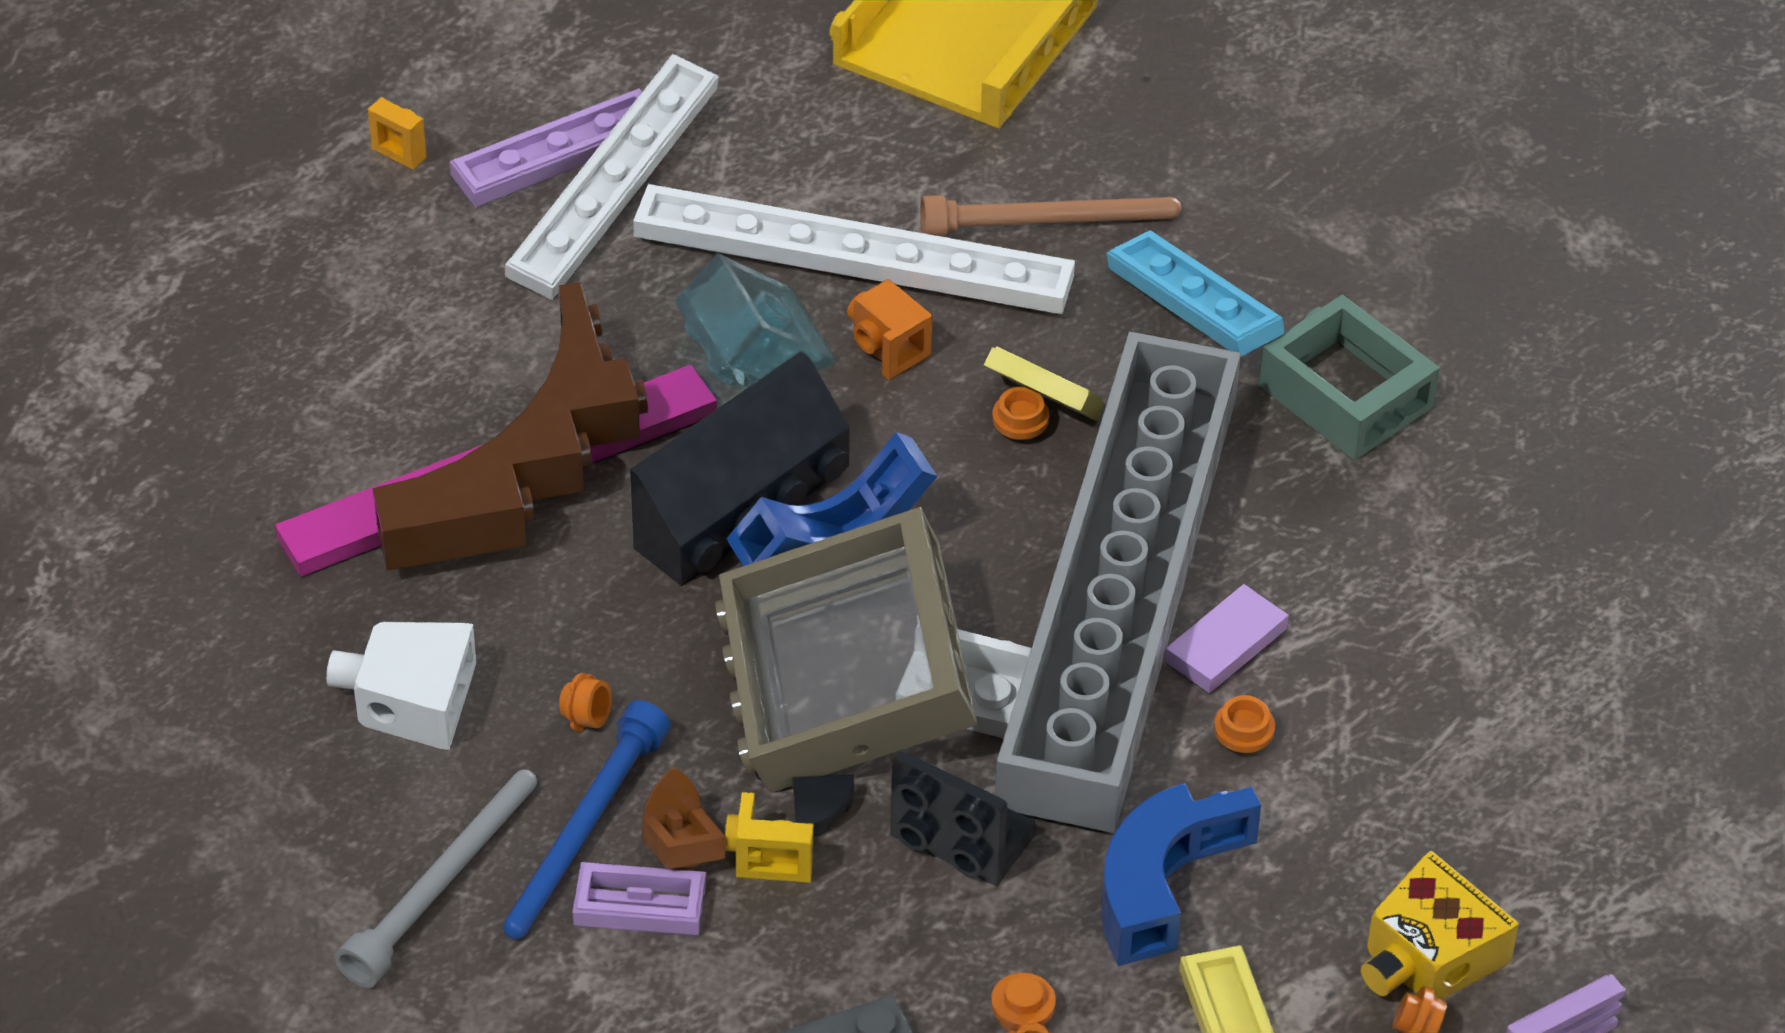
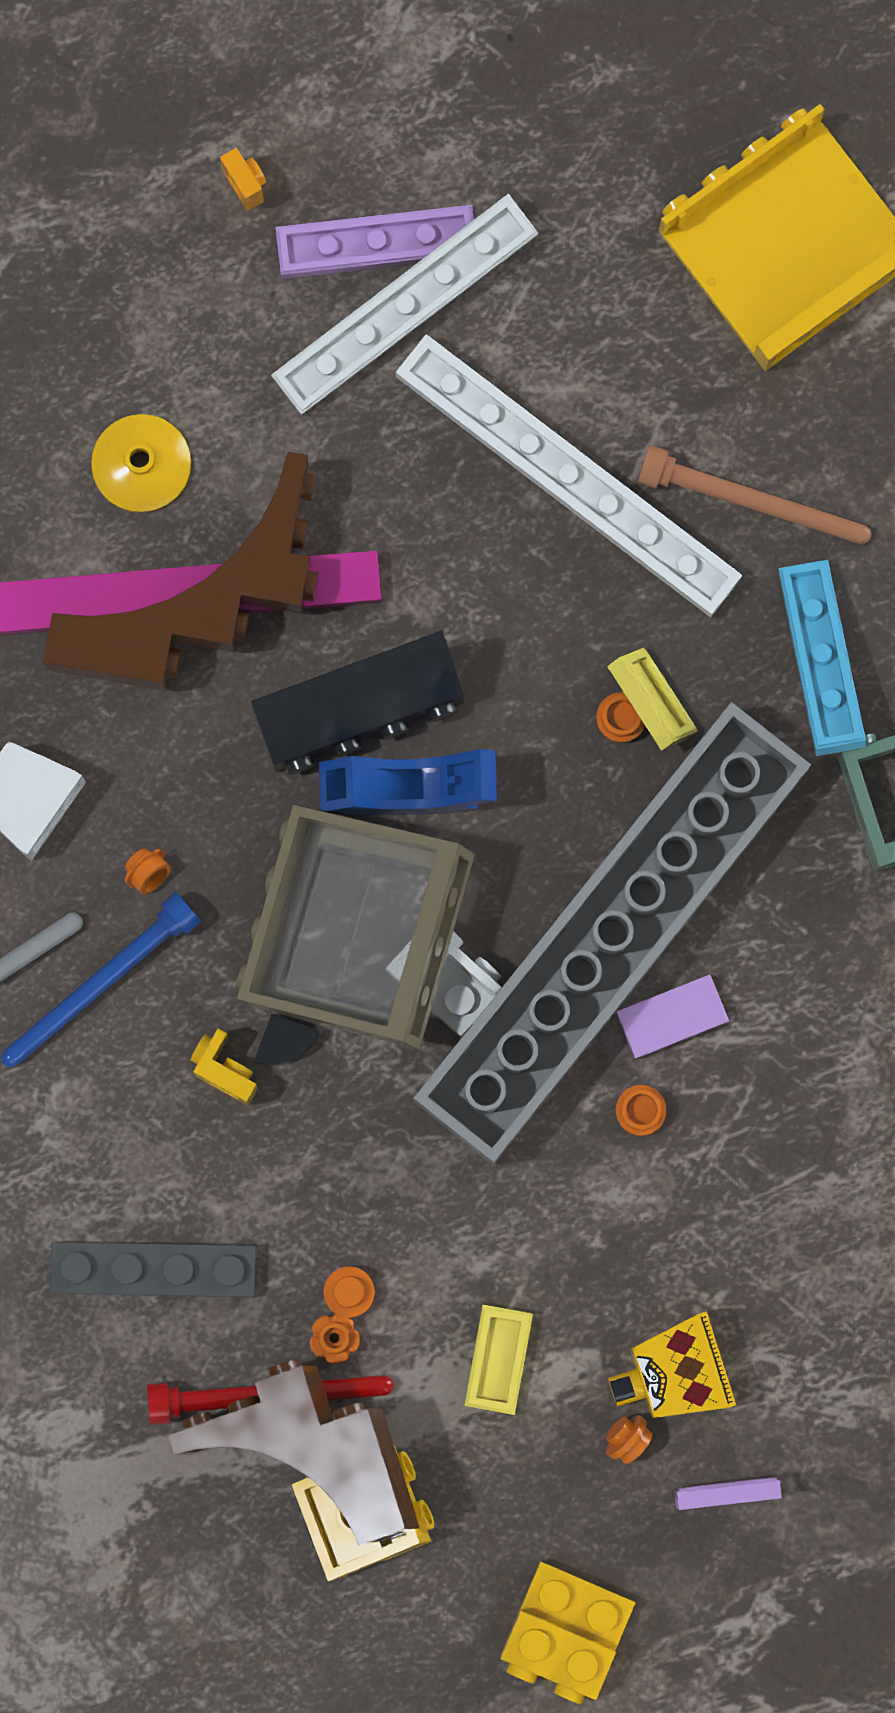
camera: 25 degrees right, 35 degrees up
(402, 386) = (144, 487): none -> yellow dish
(638, 907) = (150, 1092): lavender tile -> none
(678, 826) = (164, 1031): dark orange plate -> none
(747, 322) = (445, 534): clear light blue slope -> none
(891, 327) = (554, 581): orange brick -> none
(955, 820) = (379, 1110): black bracket -> none
(1152, 843) = (476, 1228): blue arch -> none

